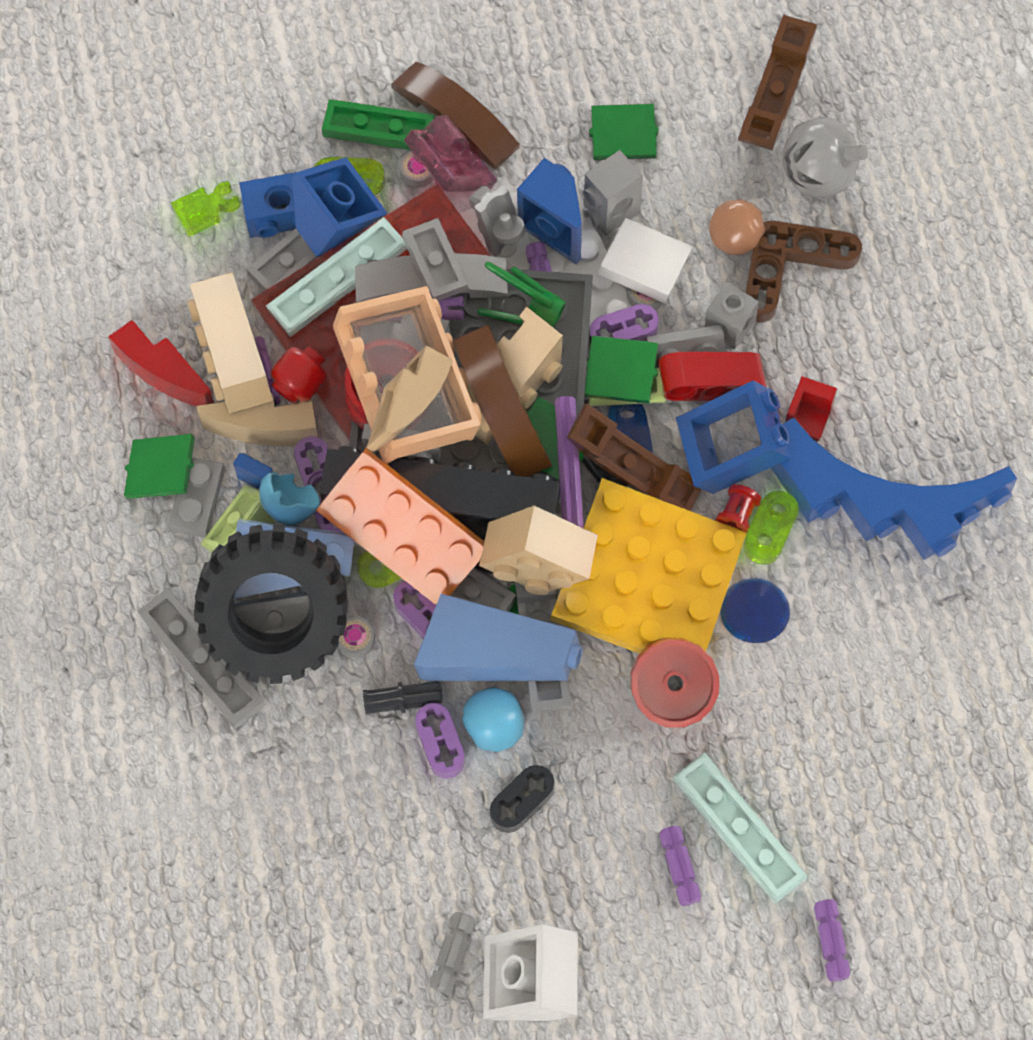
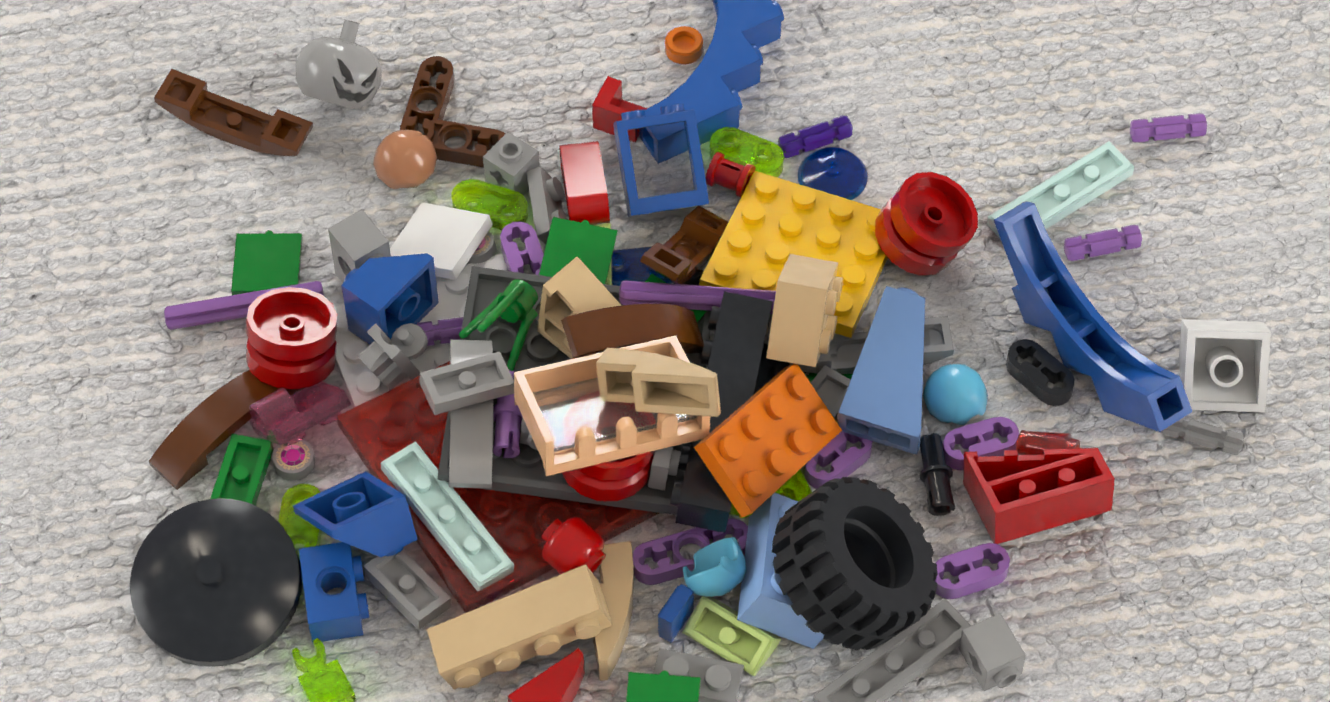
camera: 90 degrees left, 10 degrees down
(208, 743) = (992, 652): none -> light grey brick
(289, 116) = (216, 582): none -> black dish
(293, 731) = (970, 572): none -> medium lavender beam
(373, 781) = (1037, 492): none -> red wedge
(429, 803) = (1035, 442): none -> clear red cone
(520, 139) = (291, 338): none -> red wheel
(547, 832) = (1086, 342): none -> blue arch
(573, 113) = (220, 308): none -> medium lavender axle
(689, 304) = (491, 200): none -> clear neon green plate
(795, 590) = (815, 136): none -> dark purple axle
(902, 466) = (684, 45): none -> orange tile

